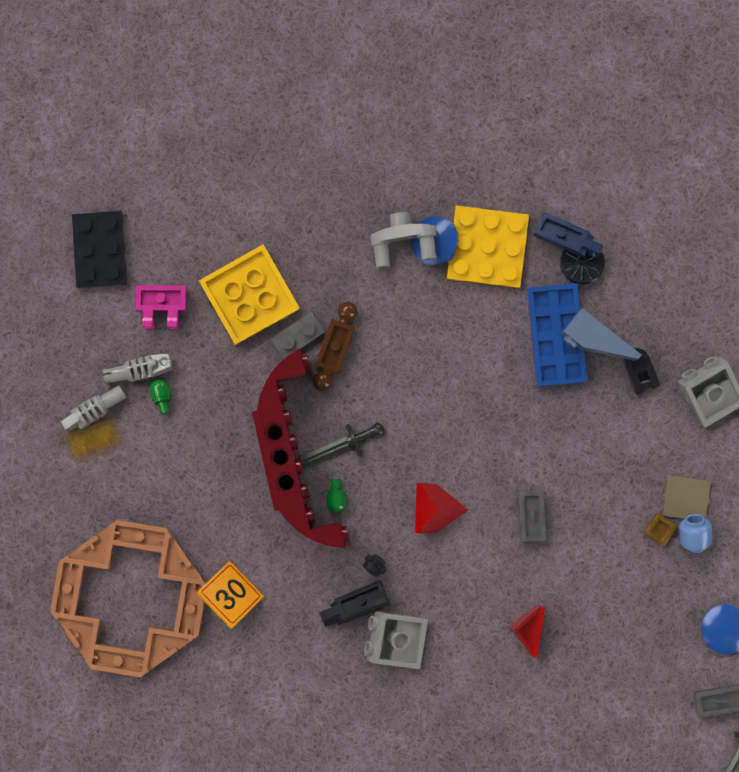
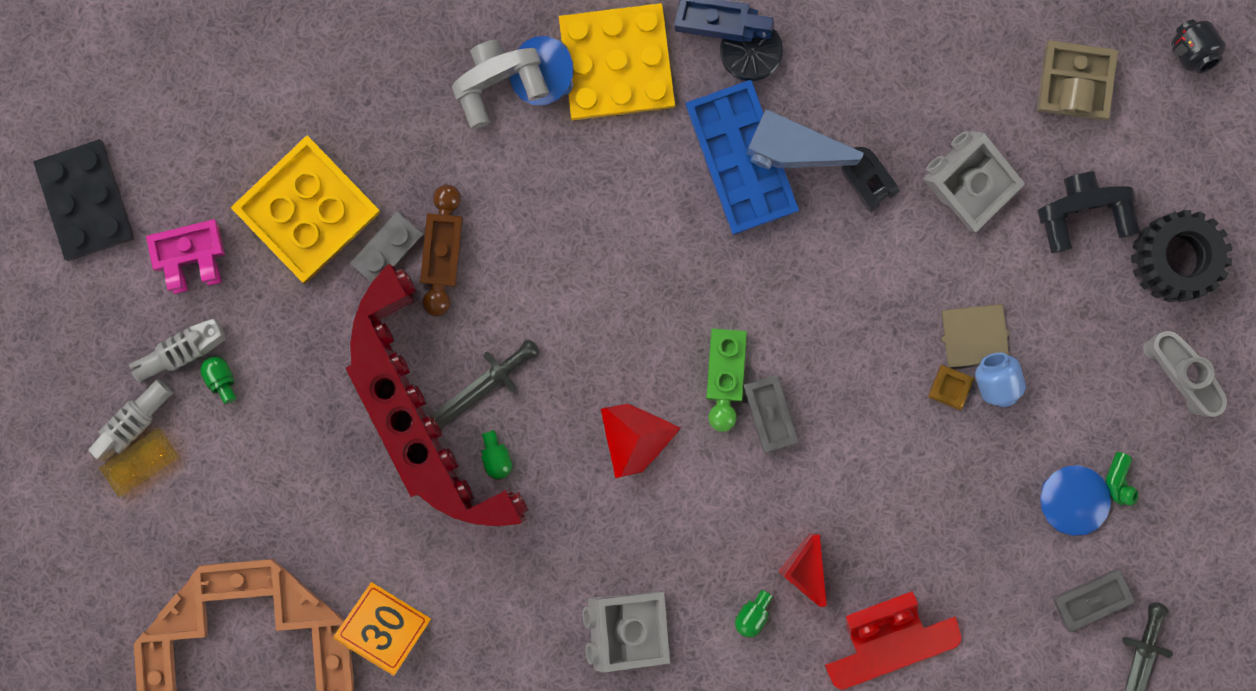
camera: 15 degrees left, 0 degrees up
(355, 604) = (559, 597): black hinge -> none
(374, 565) = (571, 536): black plate -> none
(485, 651) = (753, 615): none -> green cylinder
(507, 482) = (725, 376): none -> bright green plate
(574, 691) = (890, 639): none -> red plate

